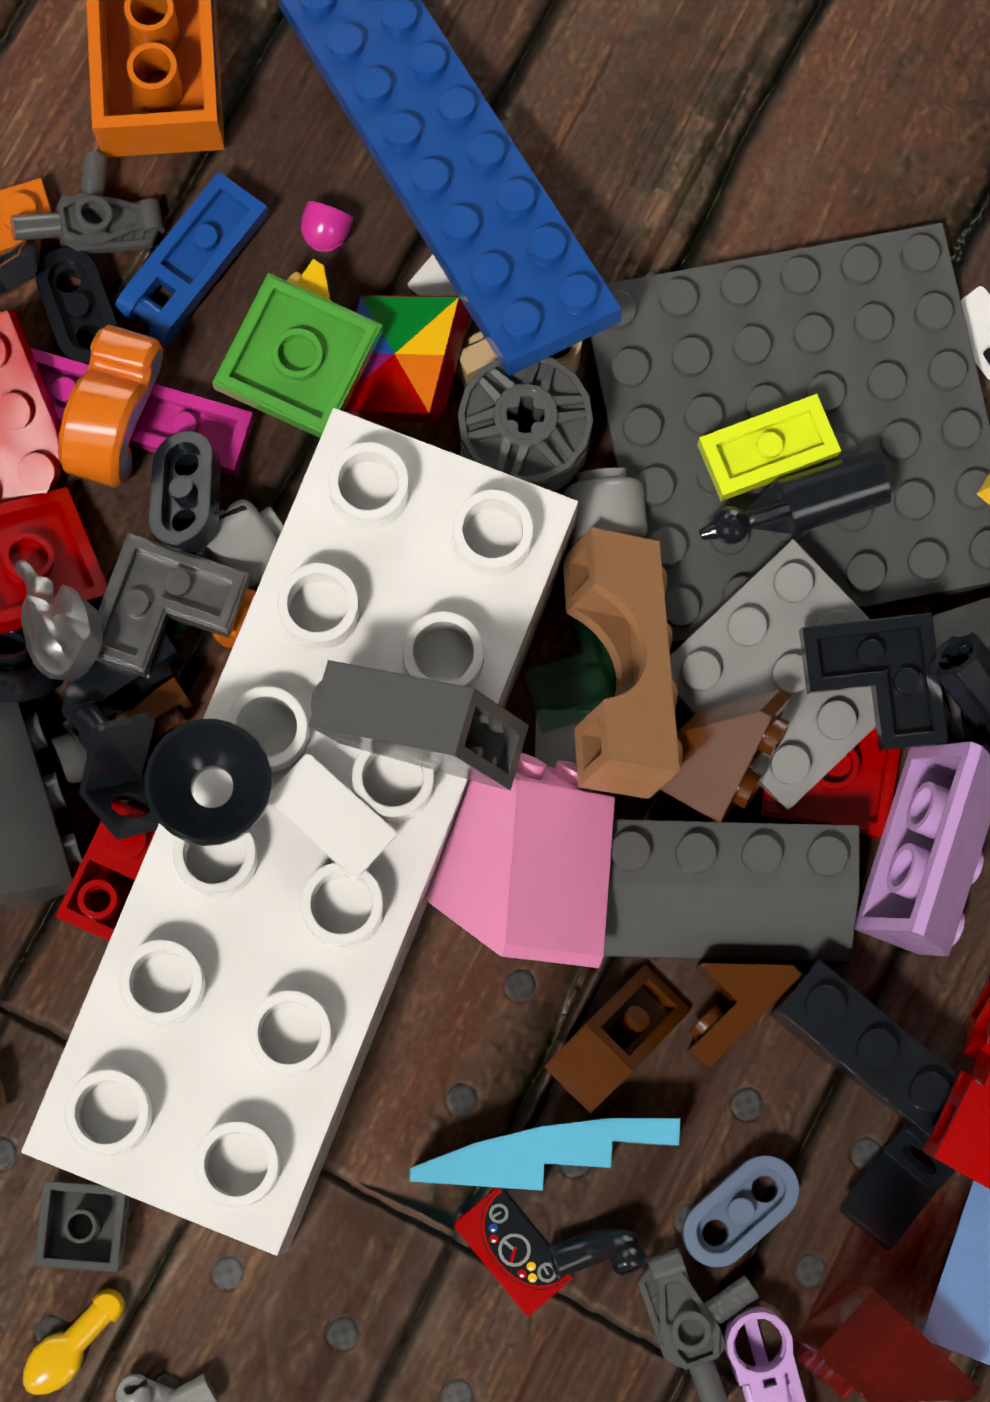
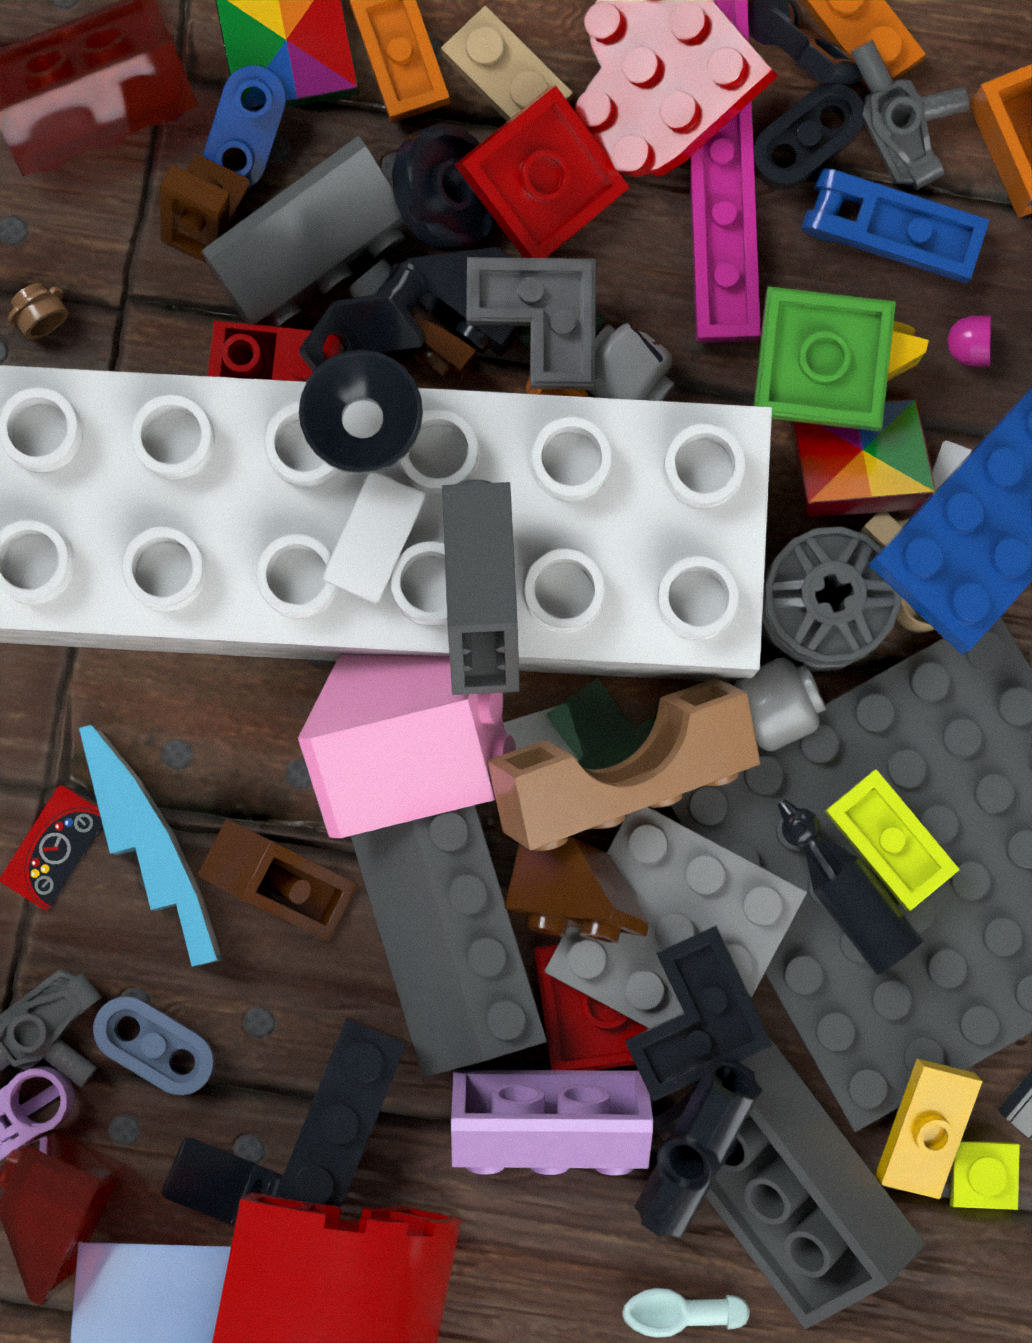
camera: 70 degrees right, 5 degrees up
(61, 630) = (478, 227): flat silver piece -> none
(108, 406) = (717, 197): orange animal -> none
(182, 498) = (650, 299): black plate -> none
(596, 1246) = (80, 922): black arm -> none
(749, 991) = (358, 992): reddish brown slope -> none

